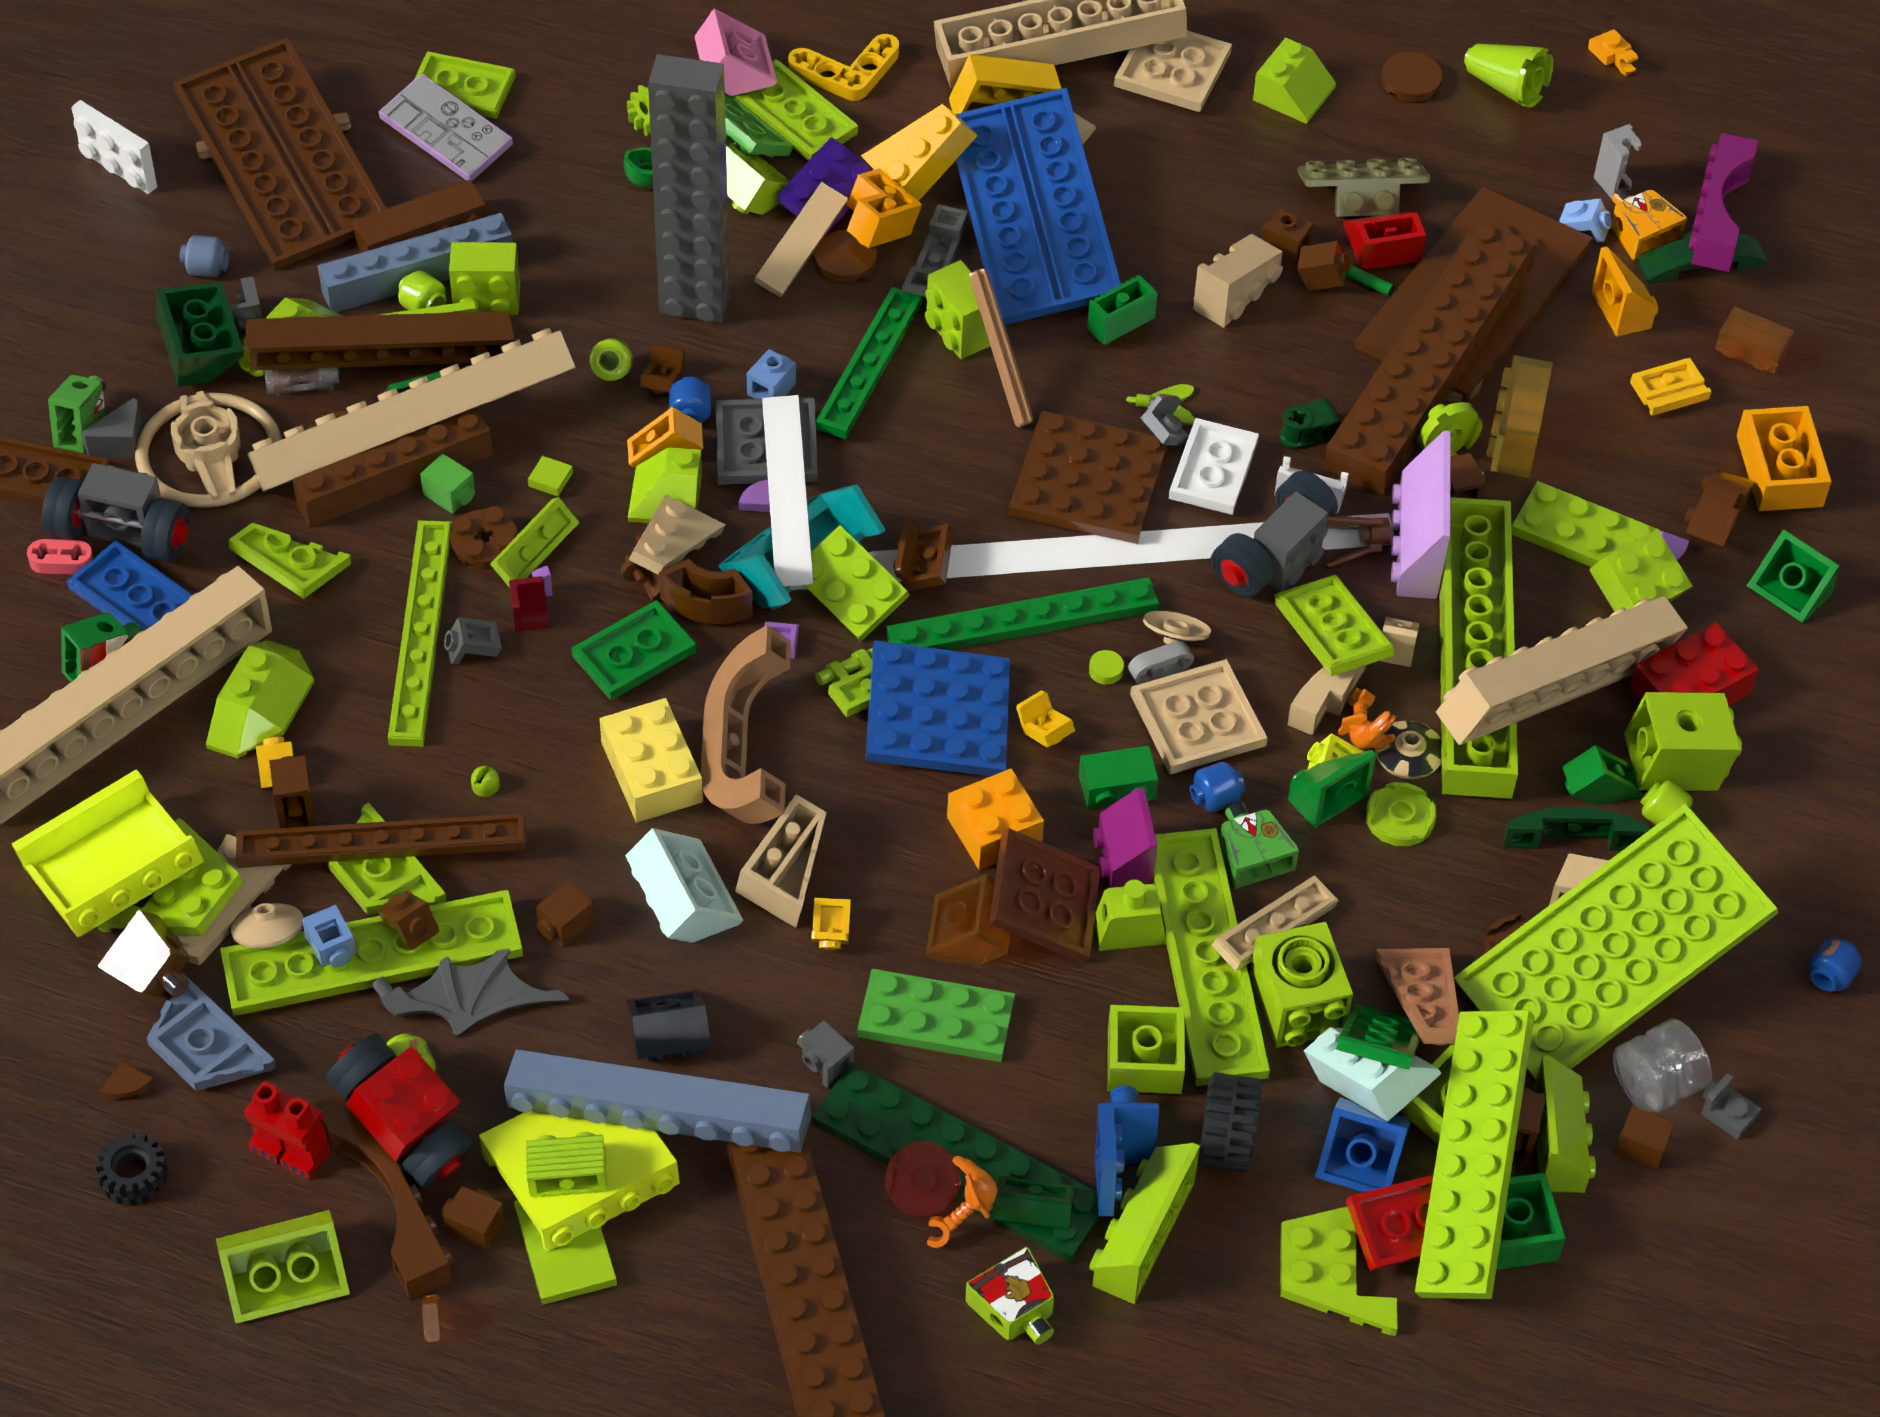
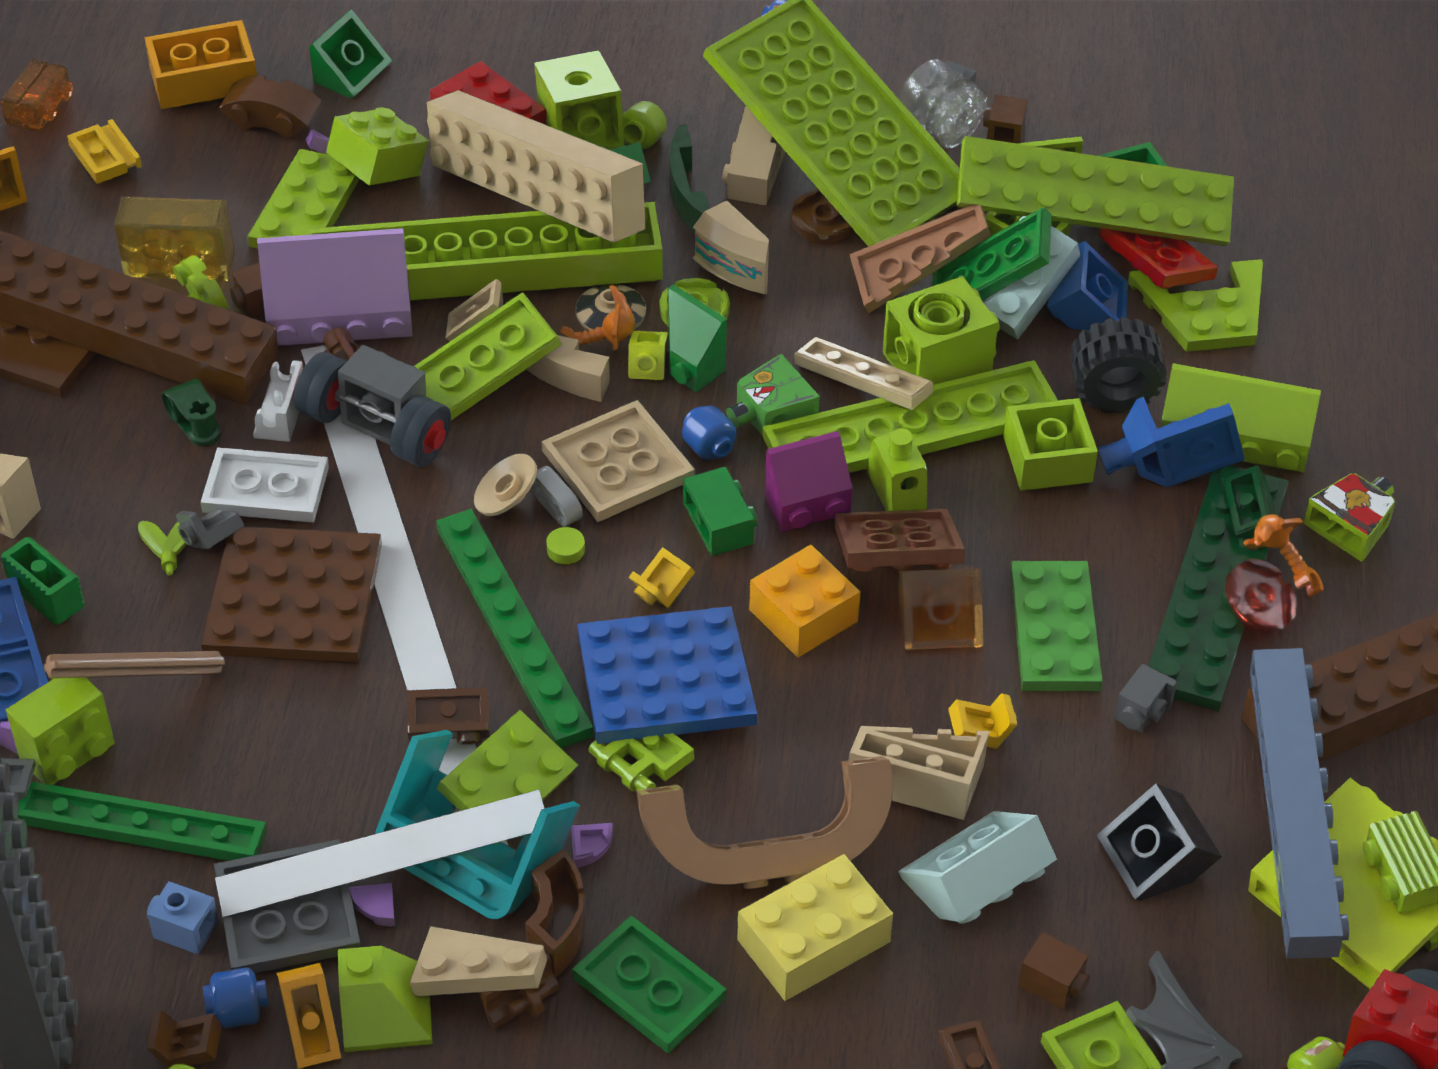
camera: 100 degrees left, 5 degrees down
(1449, 839) = (732, 248): none -> tan slope

